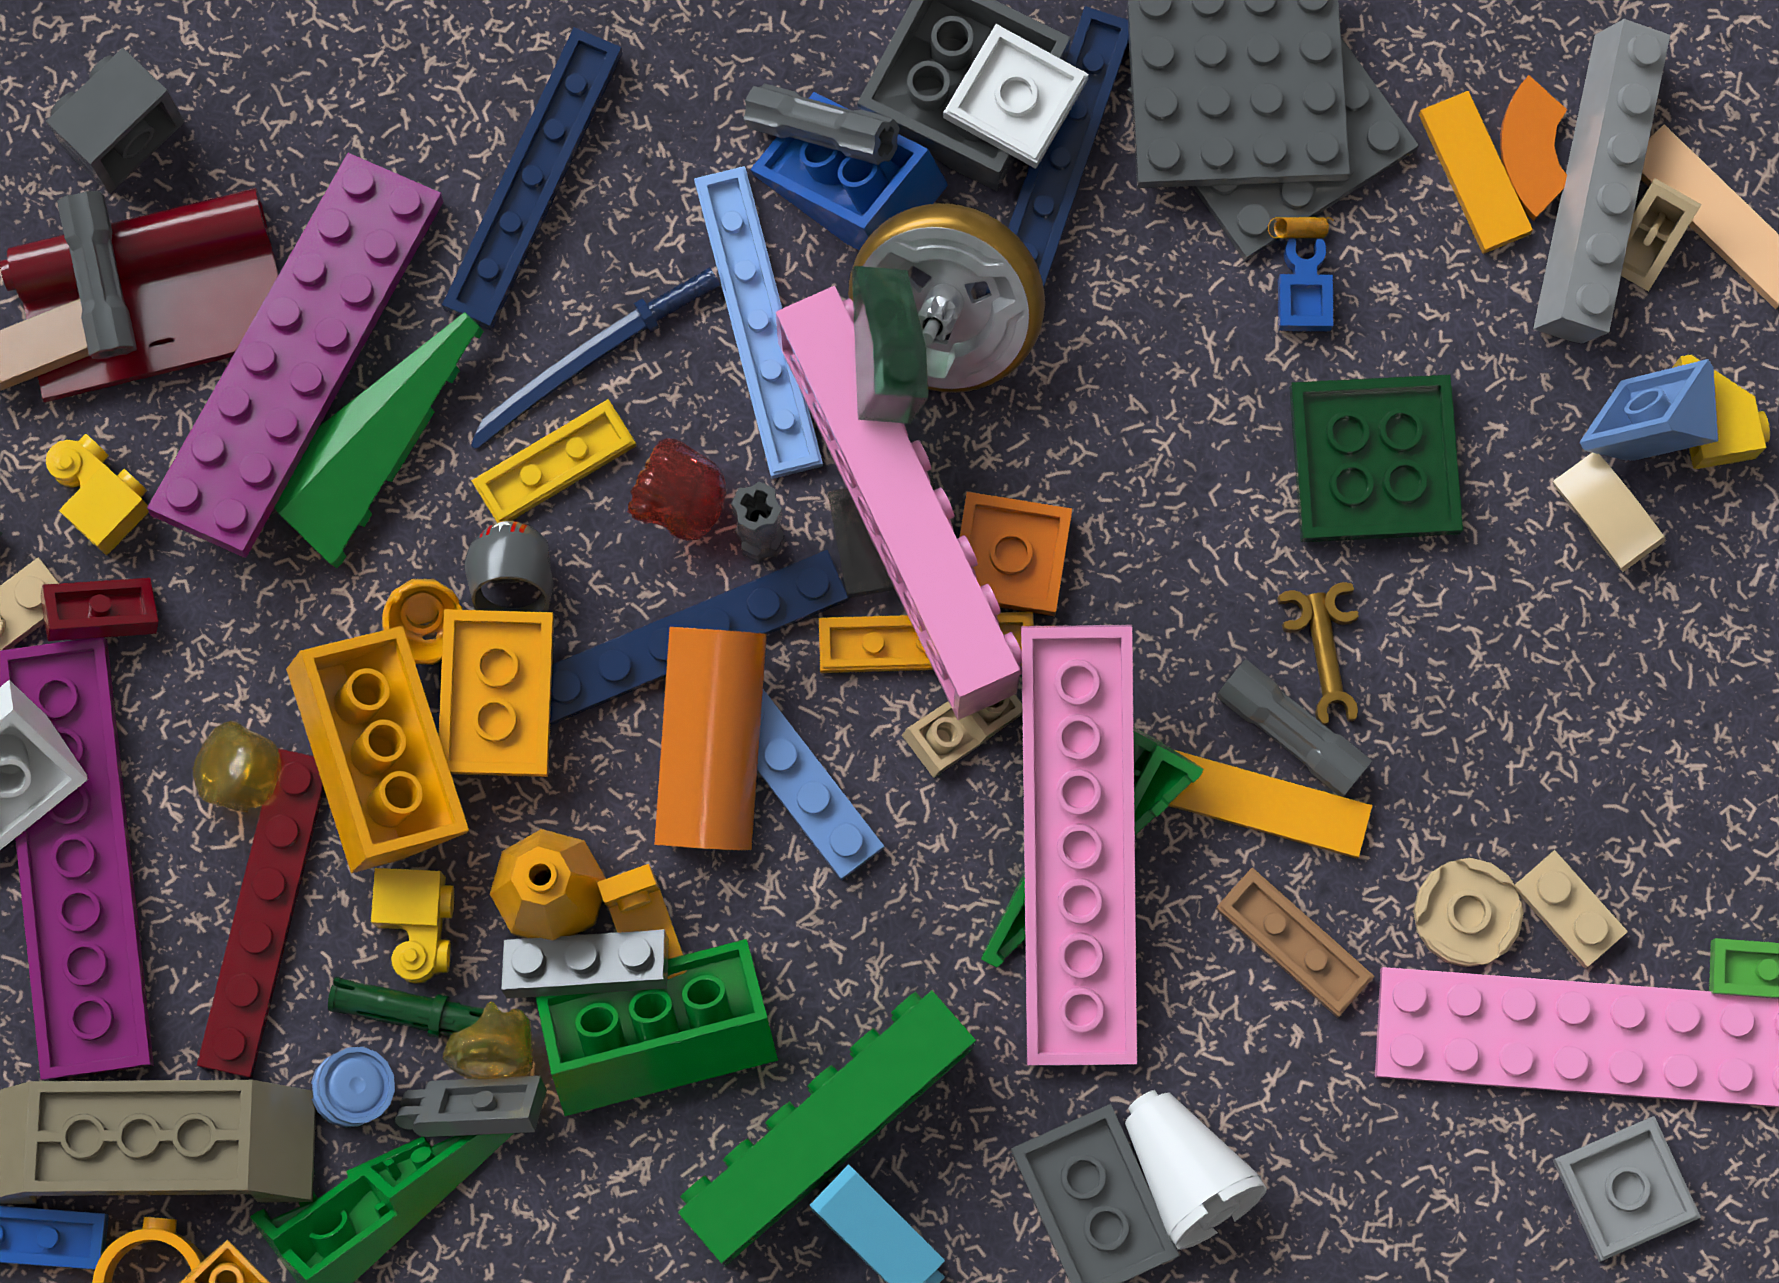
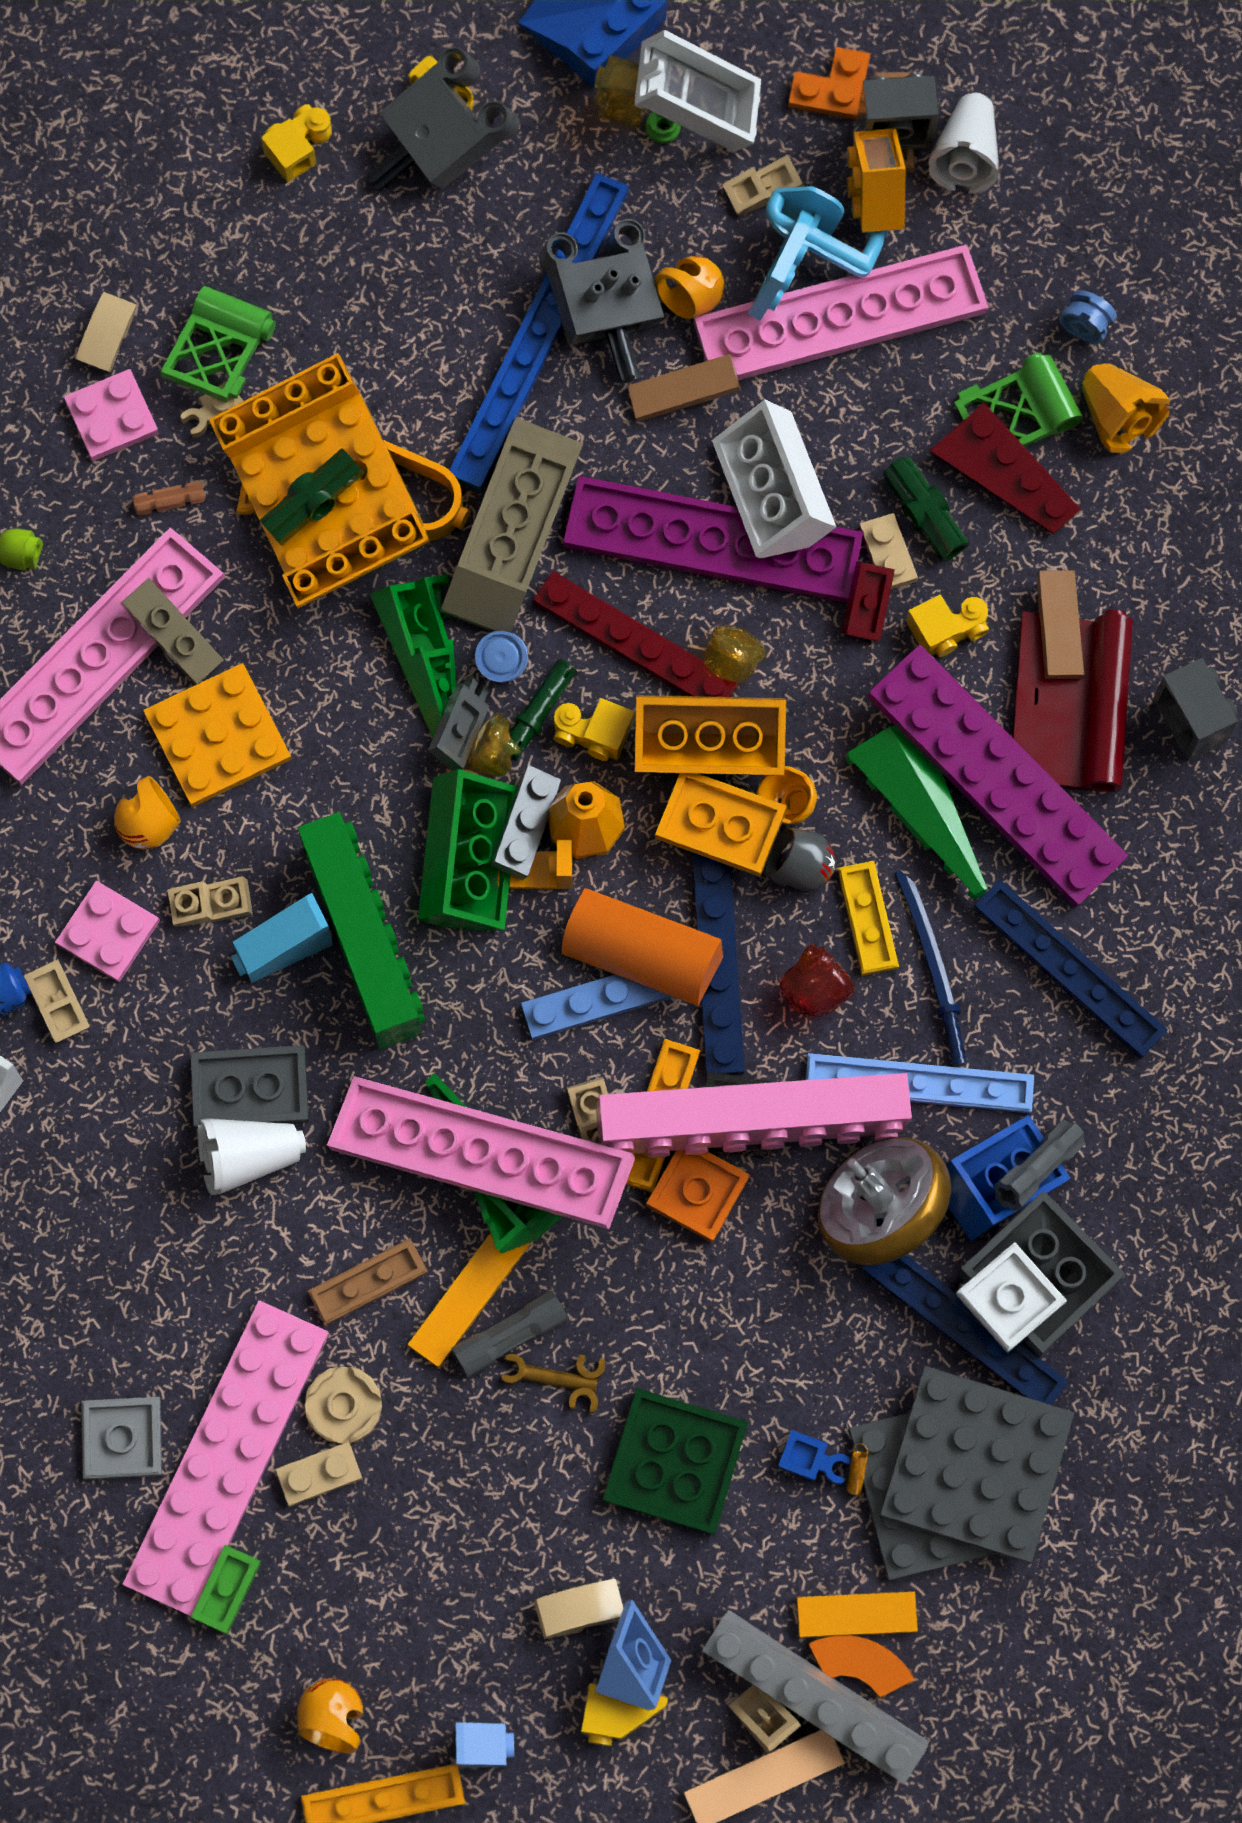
camera: 110 degrees right, 5 degrees down
(89, 238) = (1062, 660): dark grey axle -> none
(758, 522) = (771, 1020): dark grey axle -> none
(888, 346) = (858, 1134): clear green slope -> none

